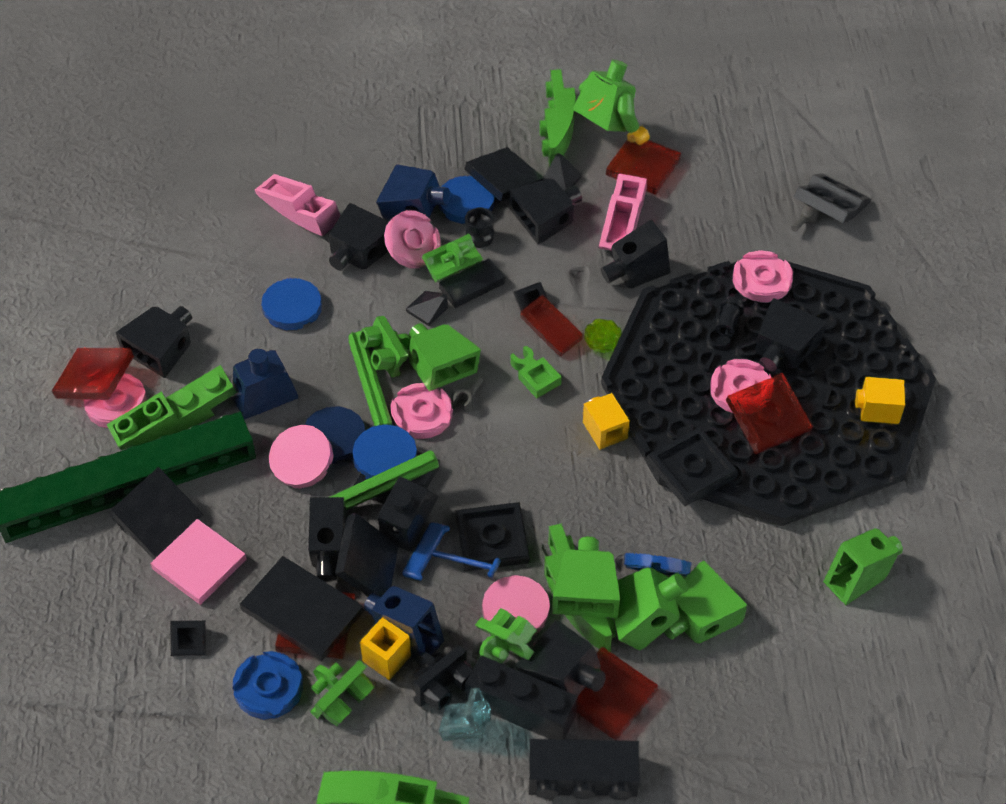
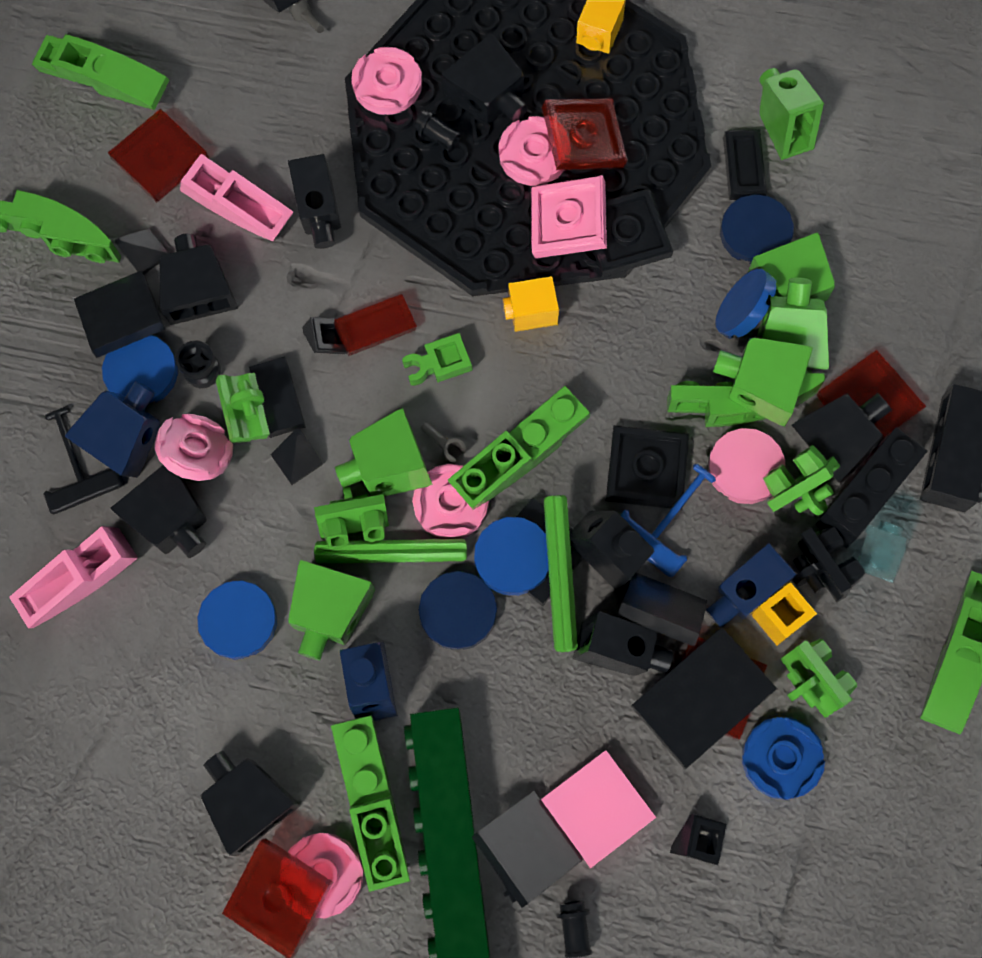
camera: 70 degrees left, 20 degrees up
(102, 563) = (575, 928): none -> black pin
(300, 456) = (486, 655): bright pink tile -> none
(313, 349) = (326, 606): none -> bright green torso
(366, 195) = (83, 489): none -> black piece
(469, 438) = (519, 450): none -> bright green slope
(599, 328) = (408, 263): clear neon green plate -> none
(610, 102) = (69, 153): bright green torso -> none
(686, 419) = (569, 217): none -> bright pink tile
(693, 110) = (102, 69): none -> bright green slope
(745, 569) = (755, 226): none -> dark blue tile
(802, 551) = (744, 163): none -> black tile

